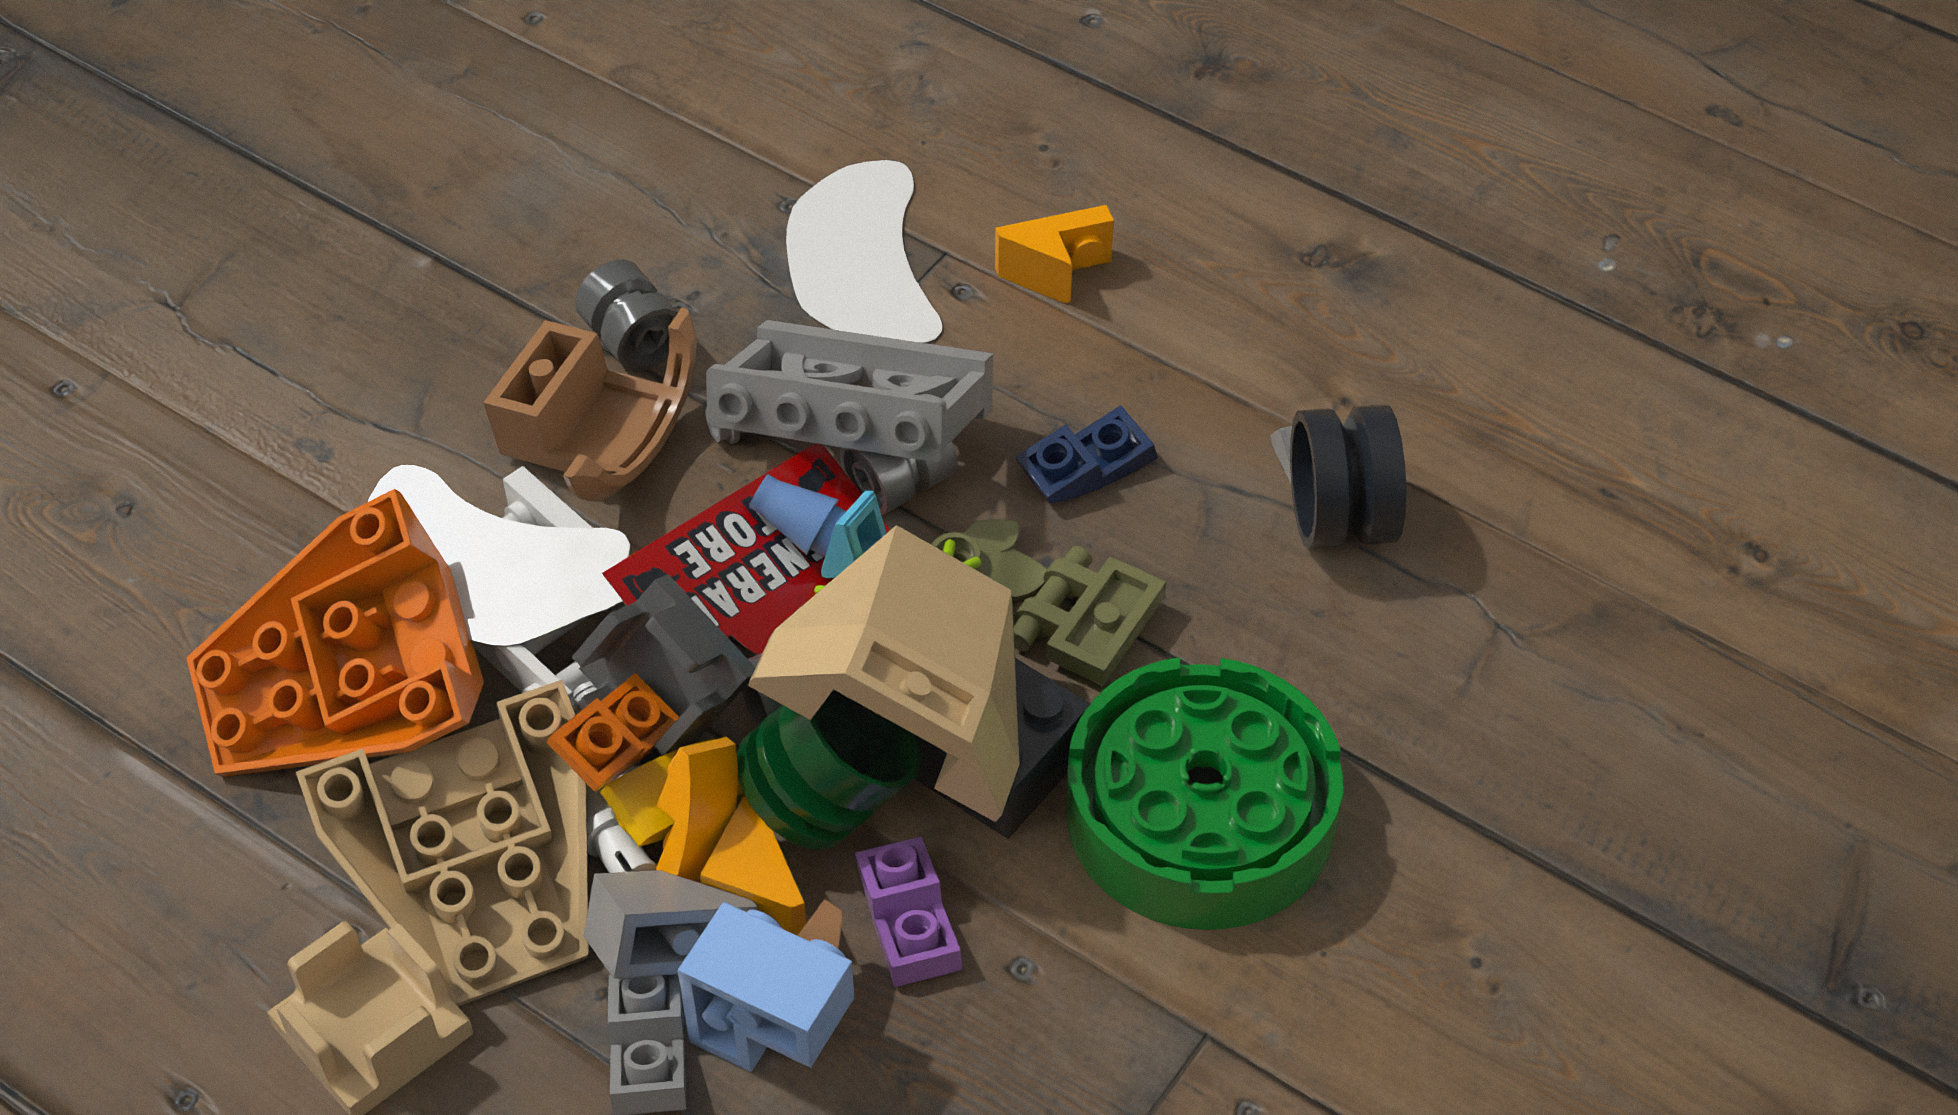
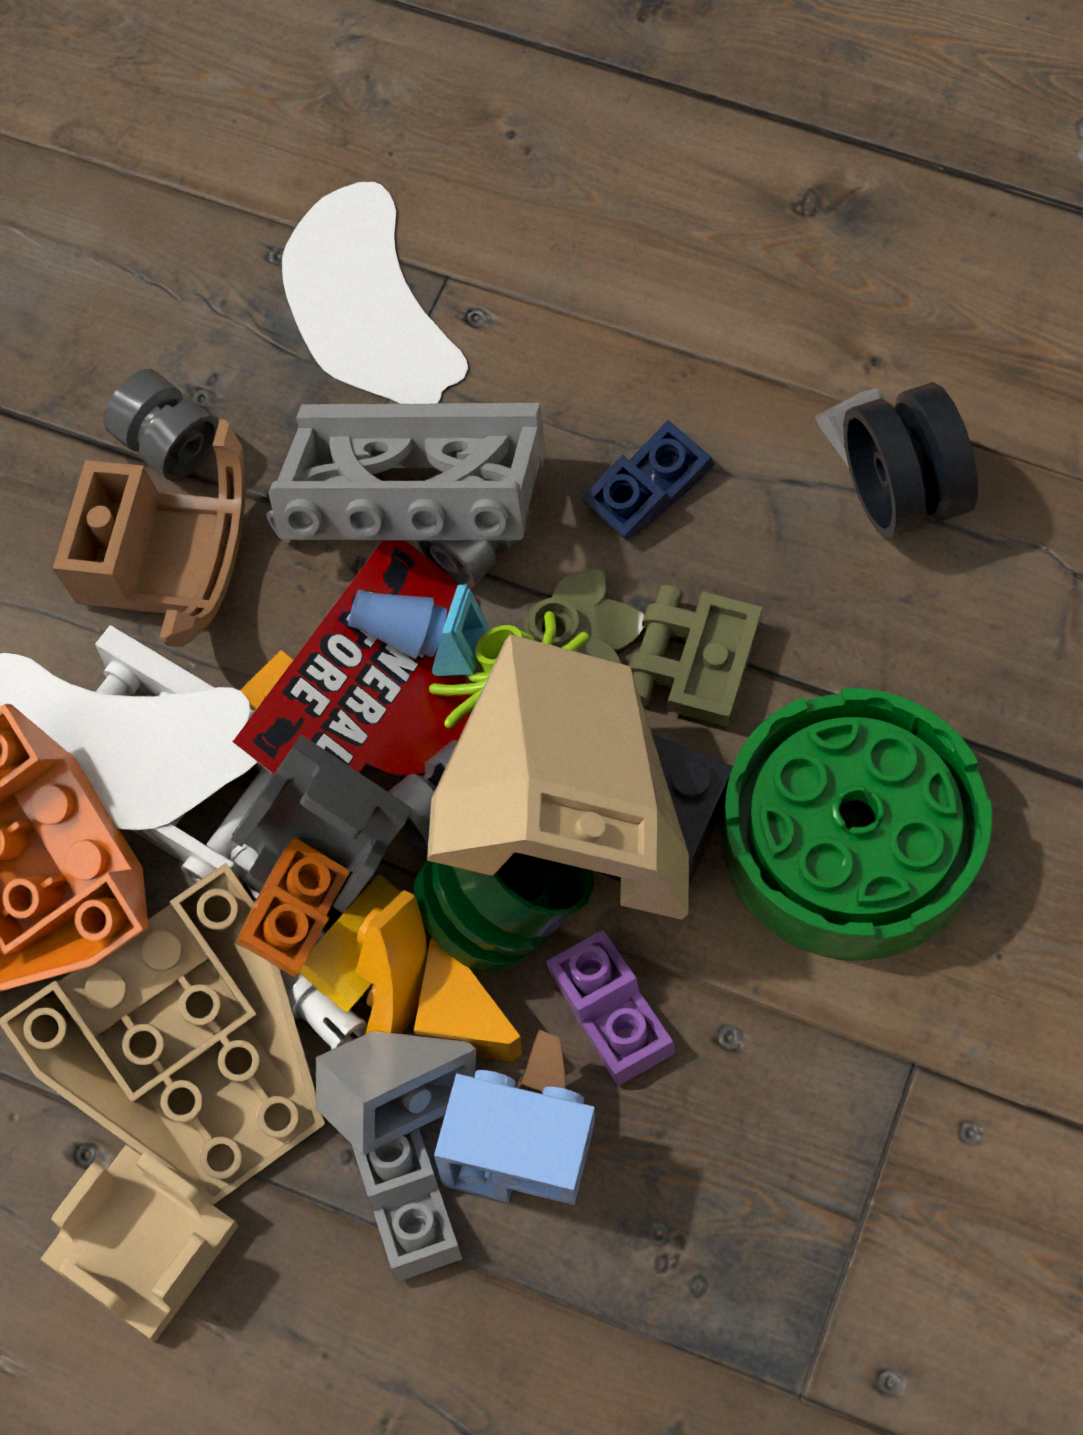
camera: 10 degrees left, 15 degrees up
(1047, 249) = (549, 261): light orange slope -> none

